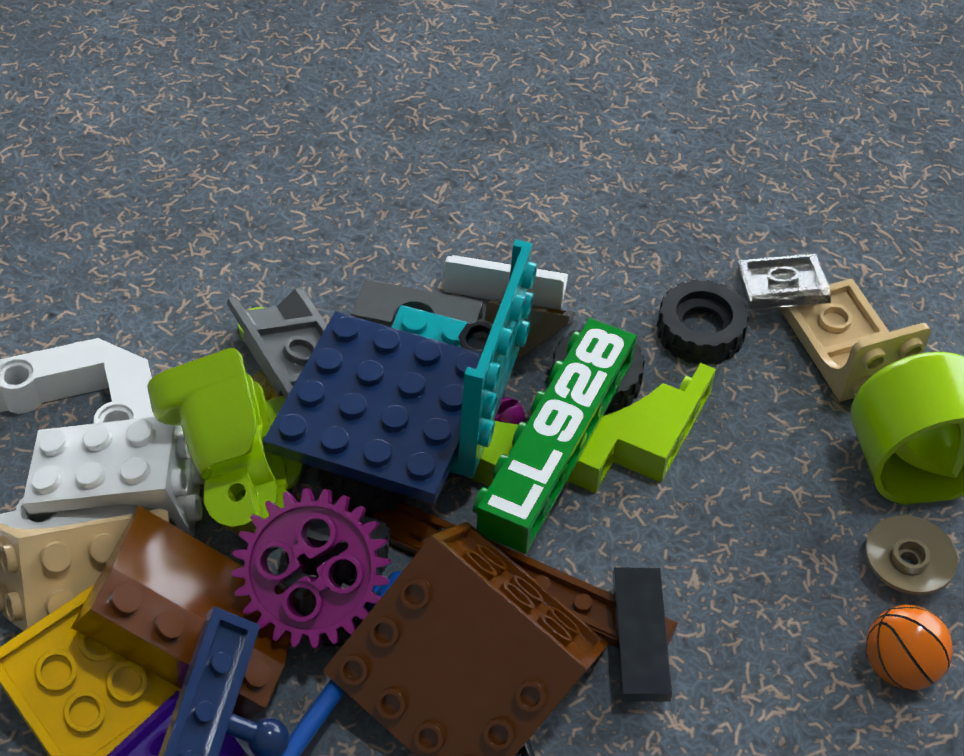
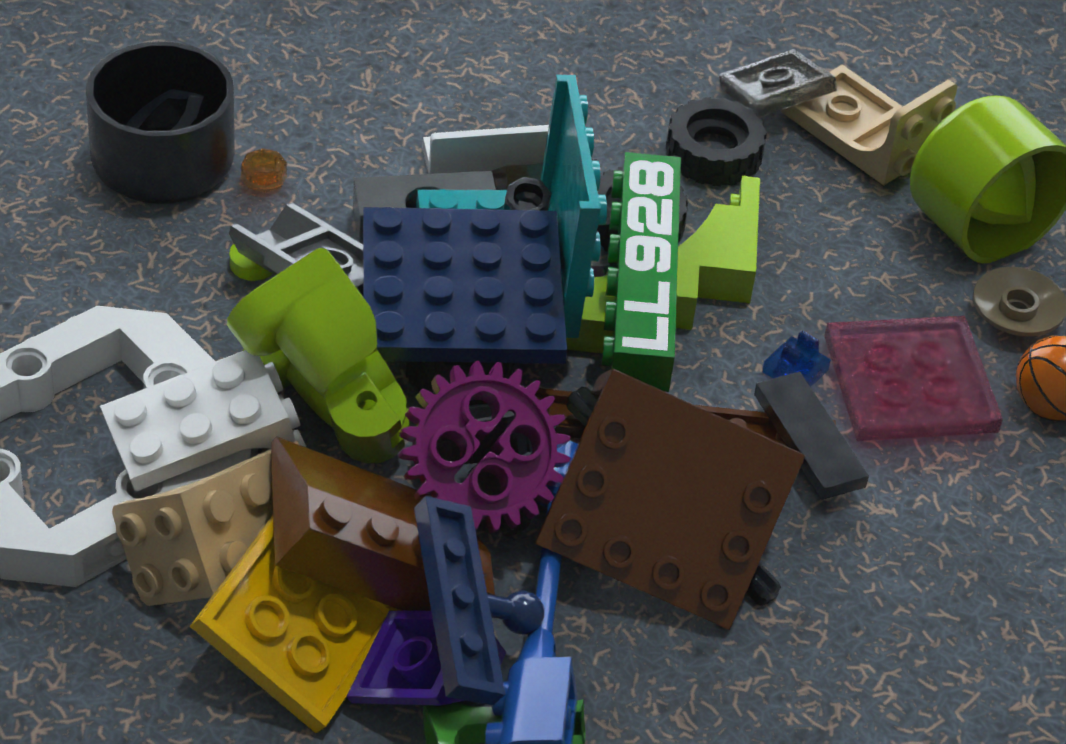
camera: 25 degrees left, 5 degrees down
(236, 191) = (161, 121): none -> black piece
(308, 252) = (264, 170): none -> clear orange tile
(671, 553) = (798, 356): none -> clear blue tile
(771, 603) = (912, 378): none -> clear pink plate

